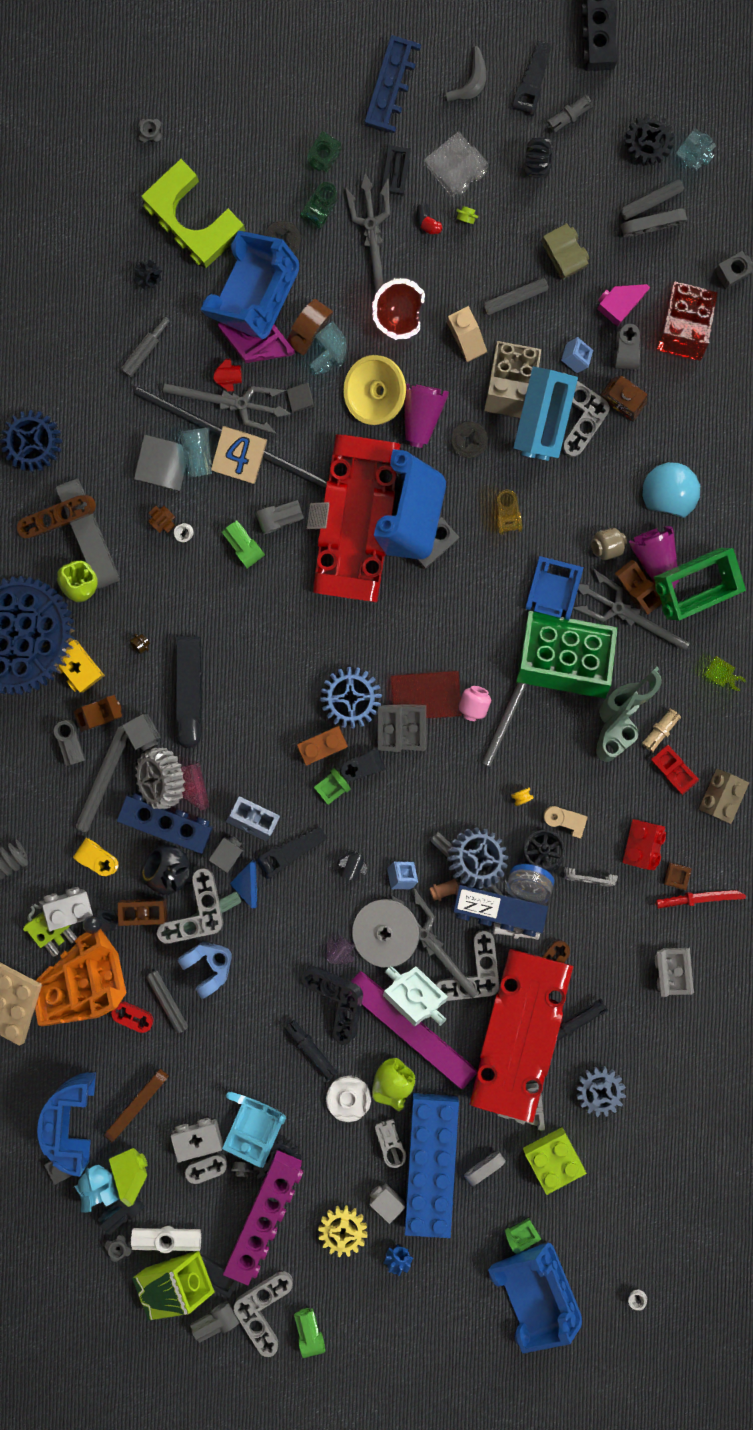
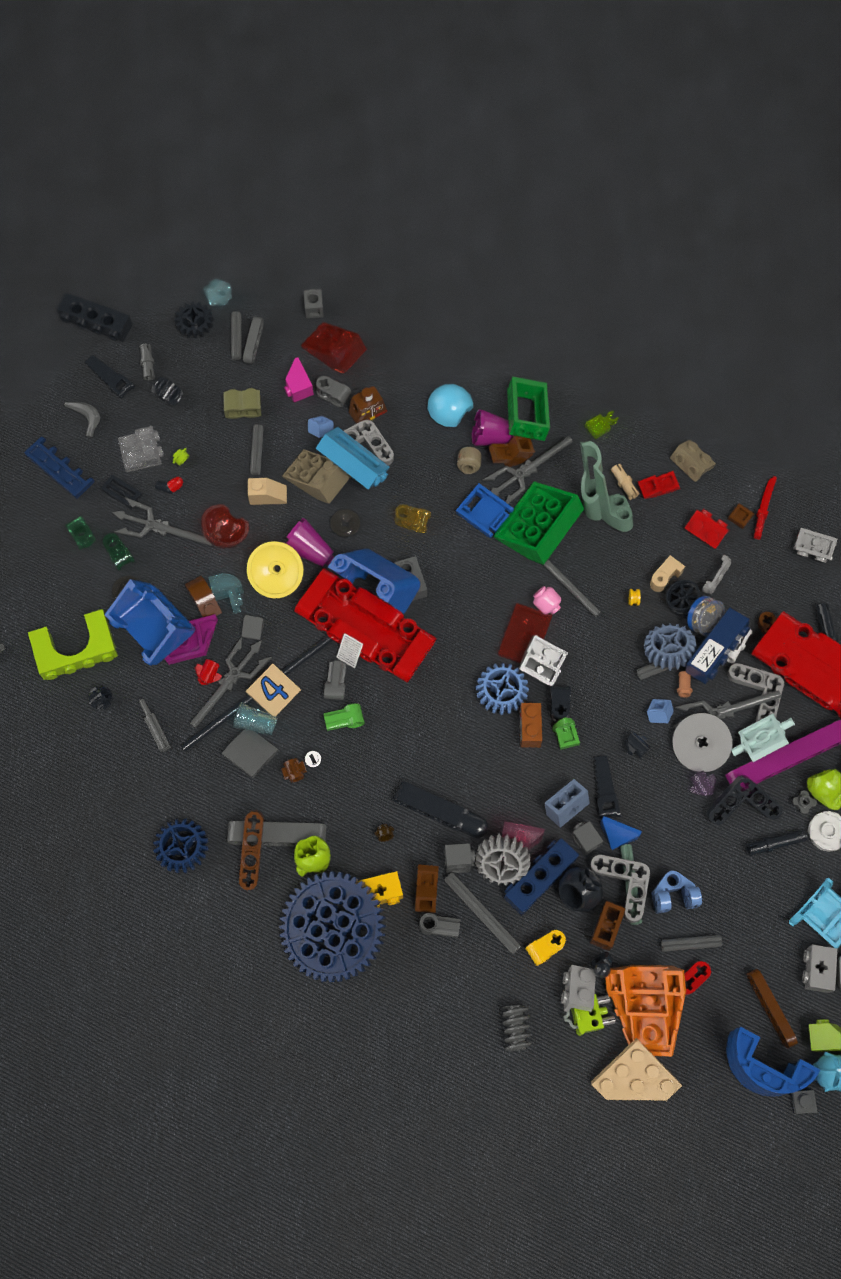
camera: 65 degrees left, 20 degrees down
(369, 1069) = (798, 802): none -> dark grey plate

